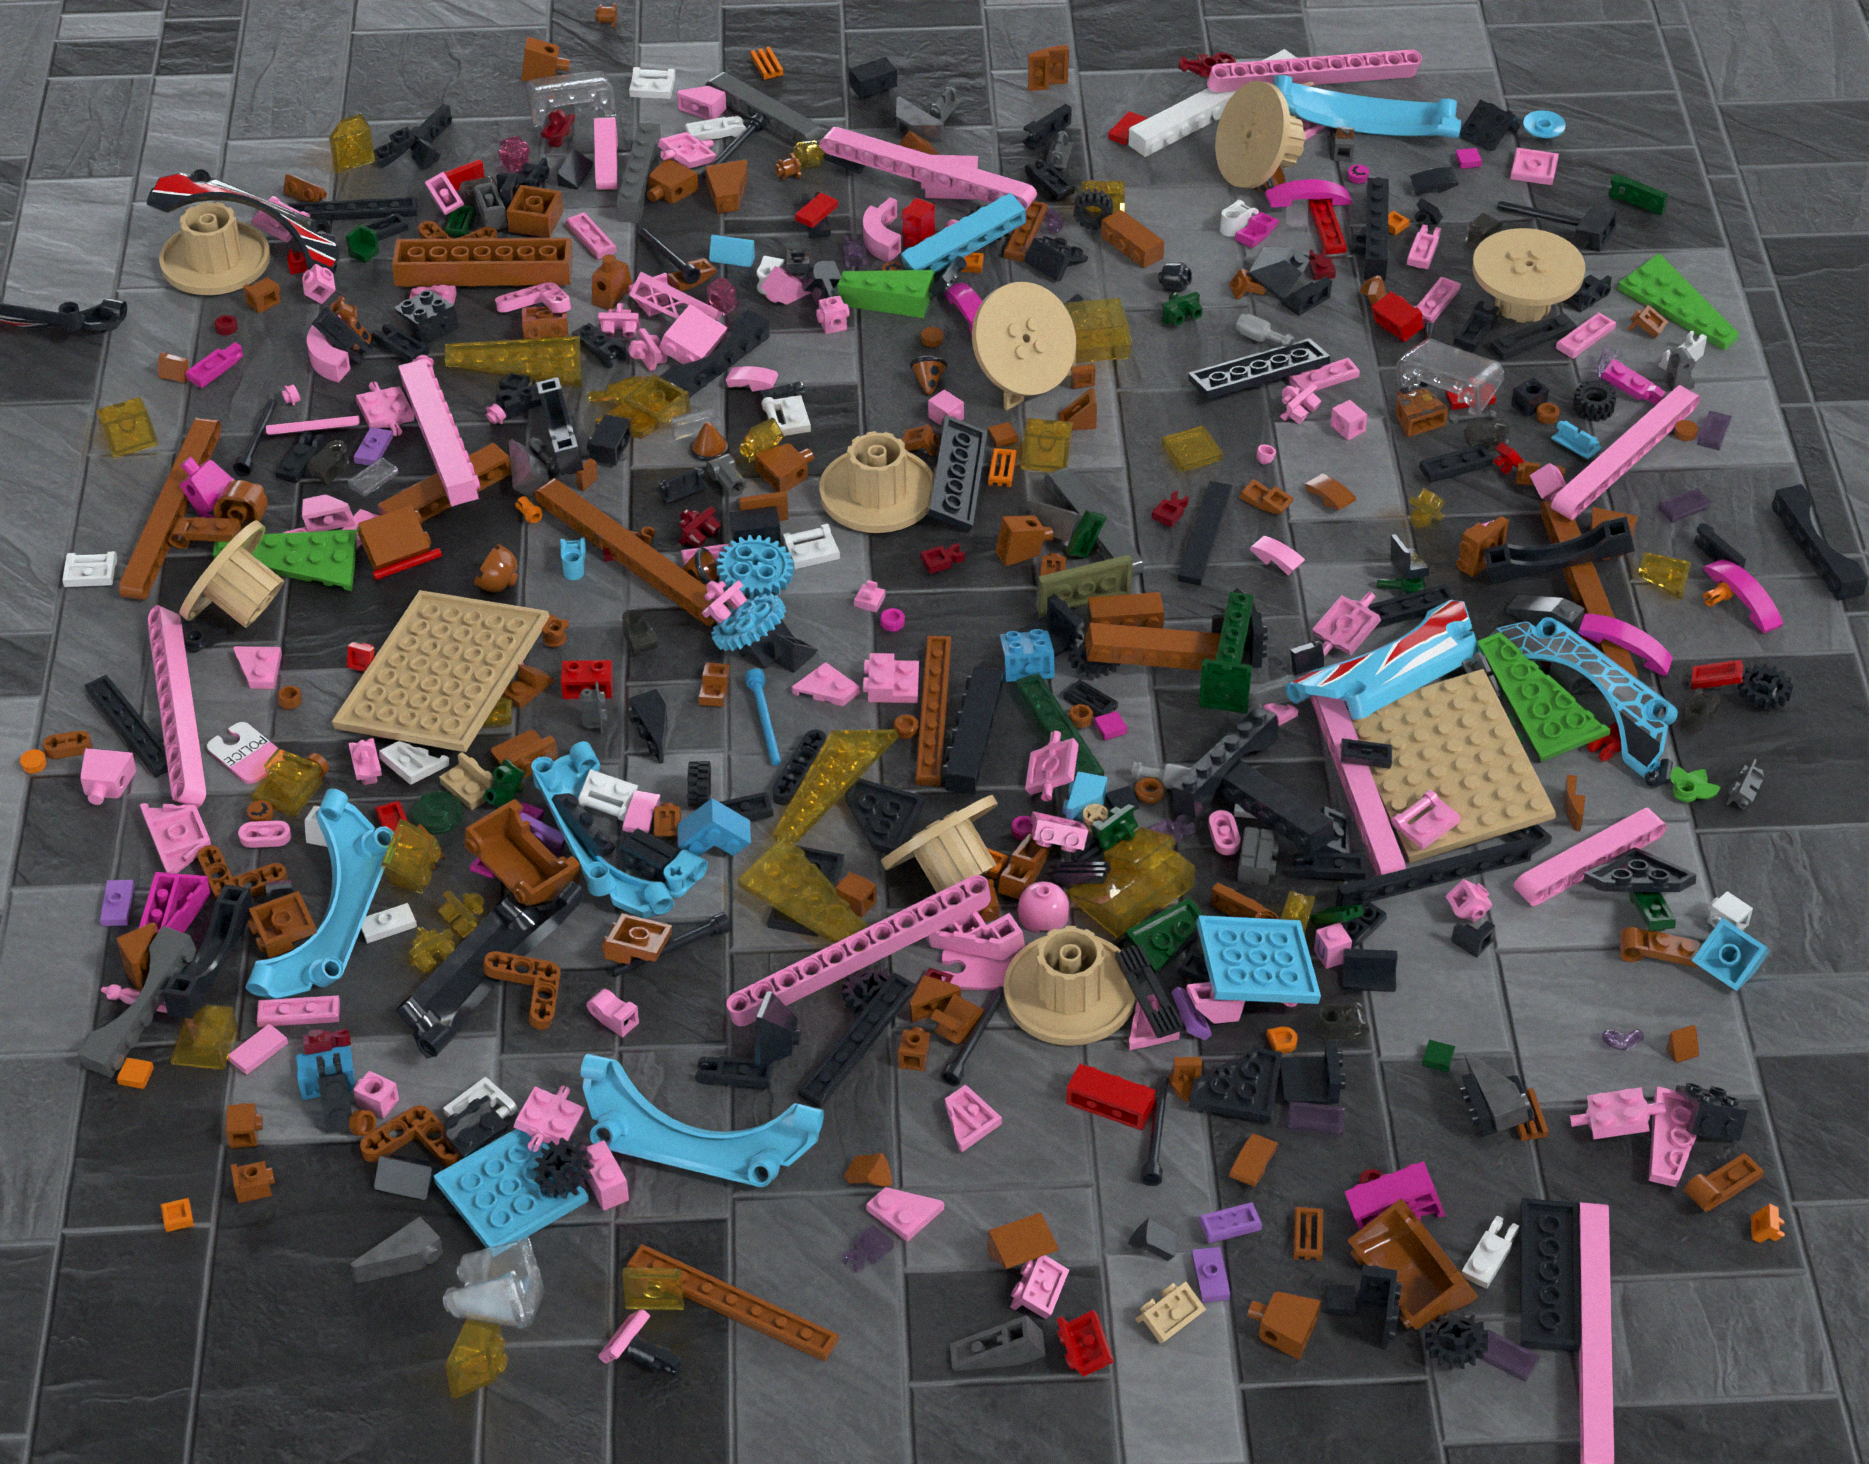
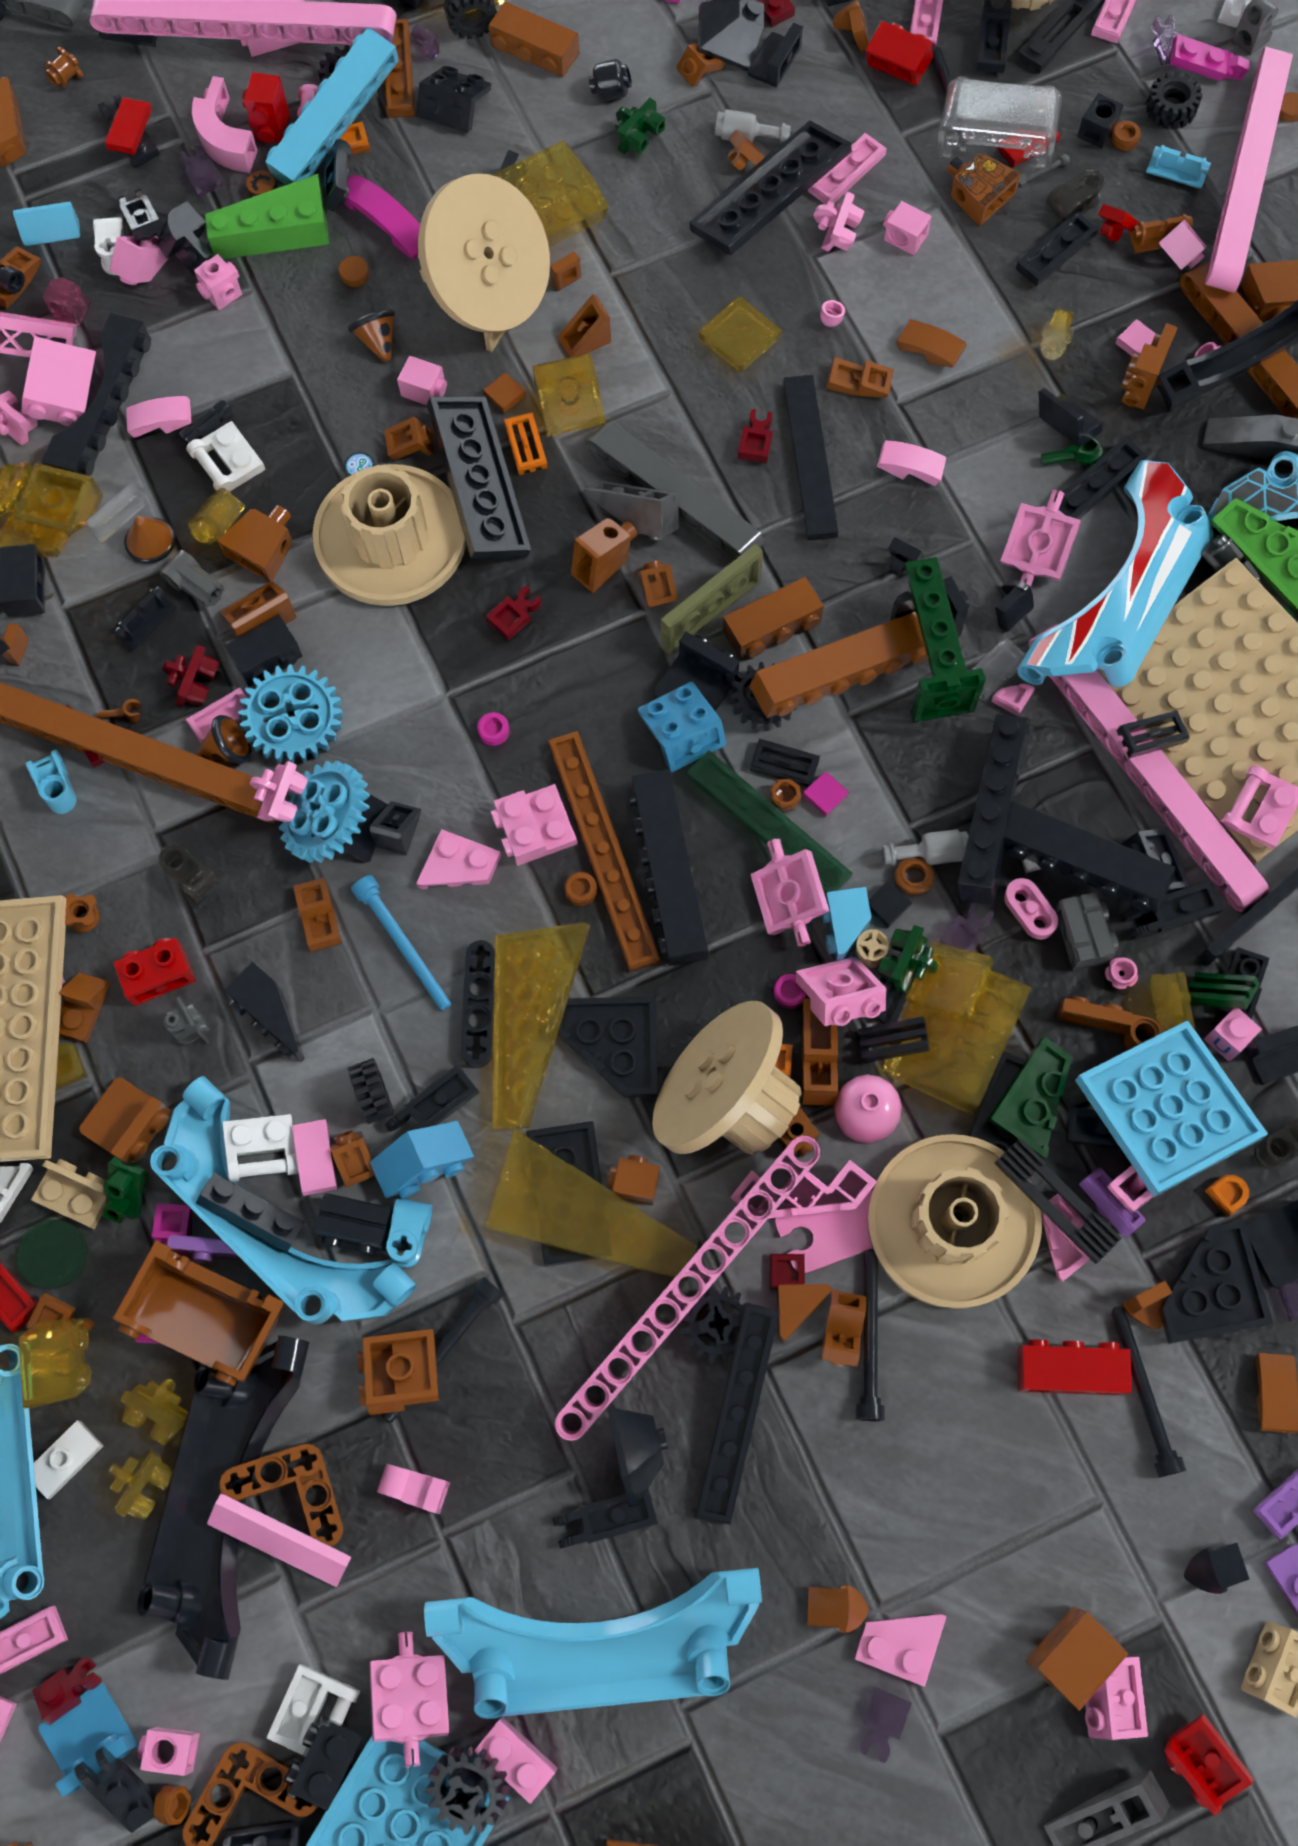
camera: 20 degrees left, 25 degrees up
(508, 1004) = (278, 1540): none -> bright pink tile
(809, 154) = (79, 39): clear yellow head -> none
(814, 551) = (350, 659): white plate -> none
(869, 597) = (451, 705): bright pink tile -> none
(914, 1044) = (805, 1405): dark orange brick -> none
(970, 1117) = (920, 1470): bright pink wing -> none
(1086, 534) = (680, 520): dark green tile -> none
(1251, 342) = (743, 151): none -> dark orange tile
(1272, 889) = (1125, 965): none -> bright pink plate

